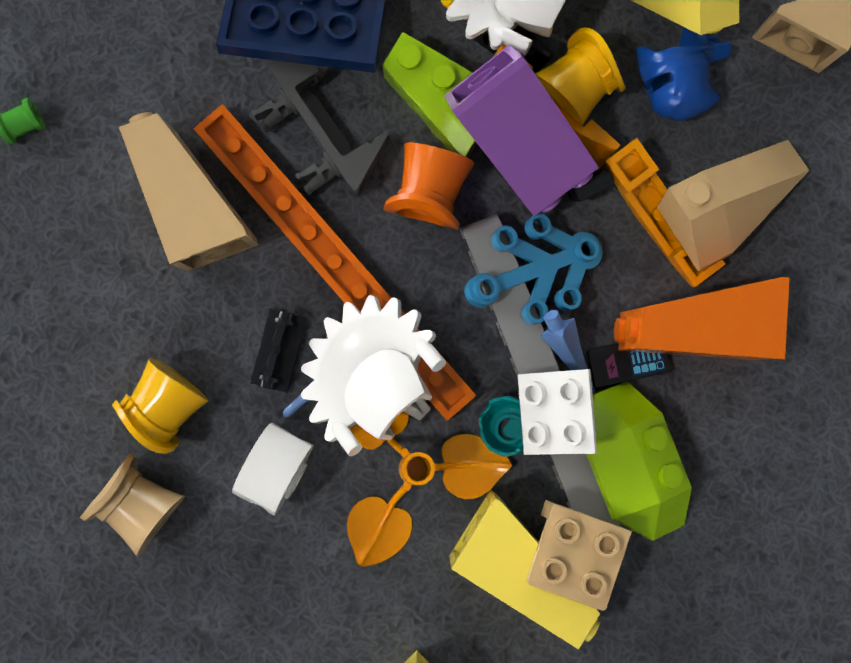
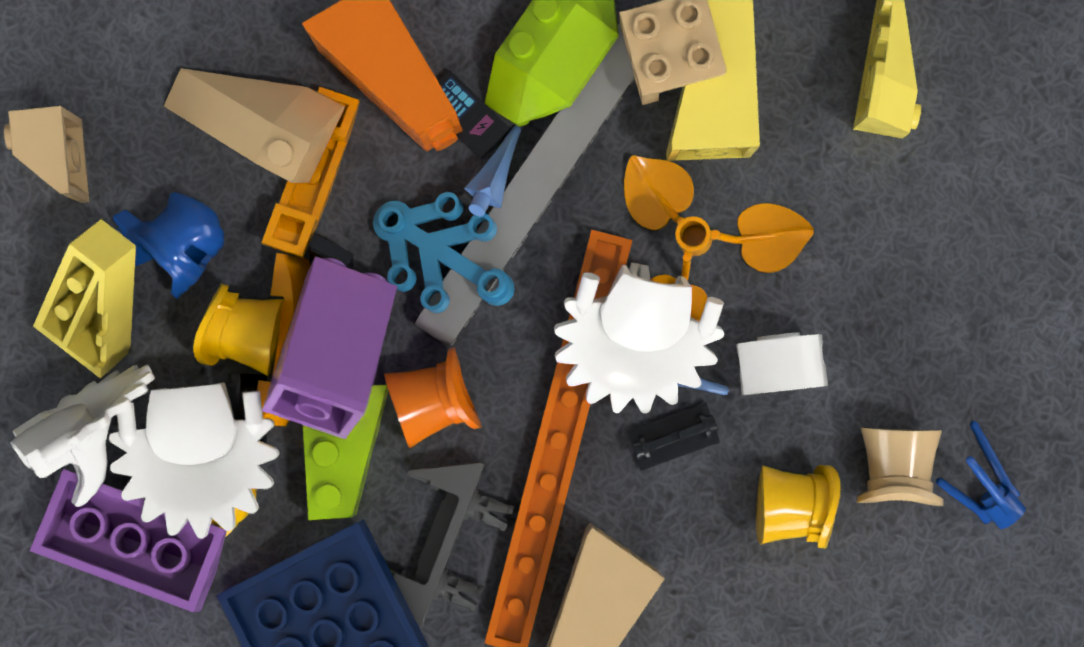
camera: 125 degrees left, 0 degrees up
(57, 563) = (1000, 500): none -> blue plant
(510, 439) = (599, 169): teal hair -> none
(557, 412) = (560, 146): white hinge -> none

